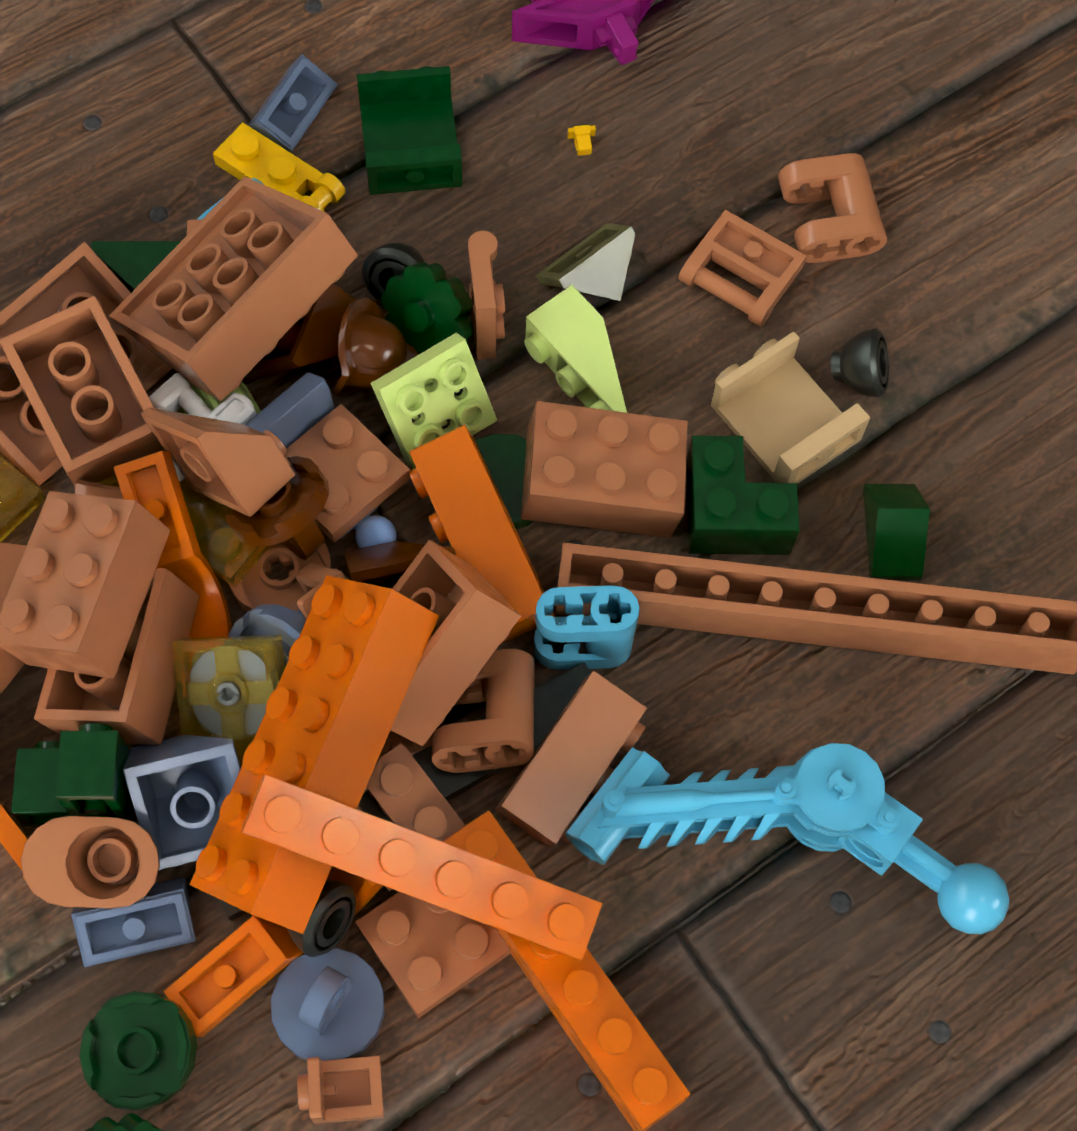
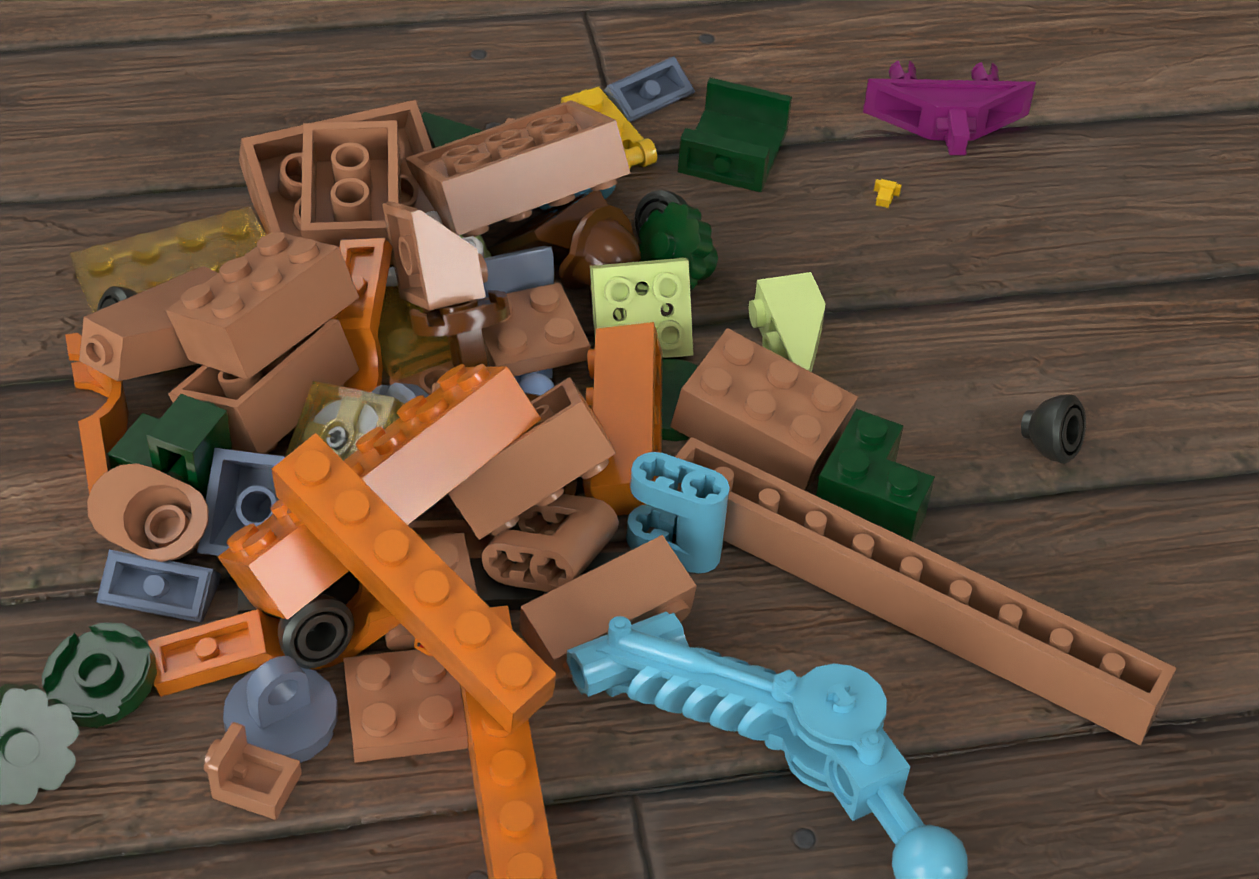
camera: 25 degrees right, 20 degrees down
(485, 294) = (727, 253): nougat plate -> none
(595, 264) = (848, 281): slope -> none
(750, 256) = (989, 315): nougat plate -> none
(785, 413) = (960, 439): tan panel -> none
(845, 182) = (1101, 311): nougat connector -> none
(895, 531) = (1020, 558): dark green slope -> none

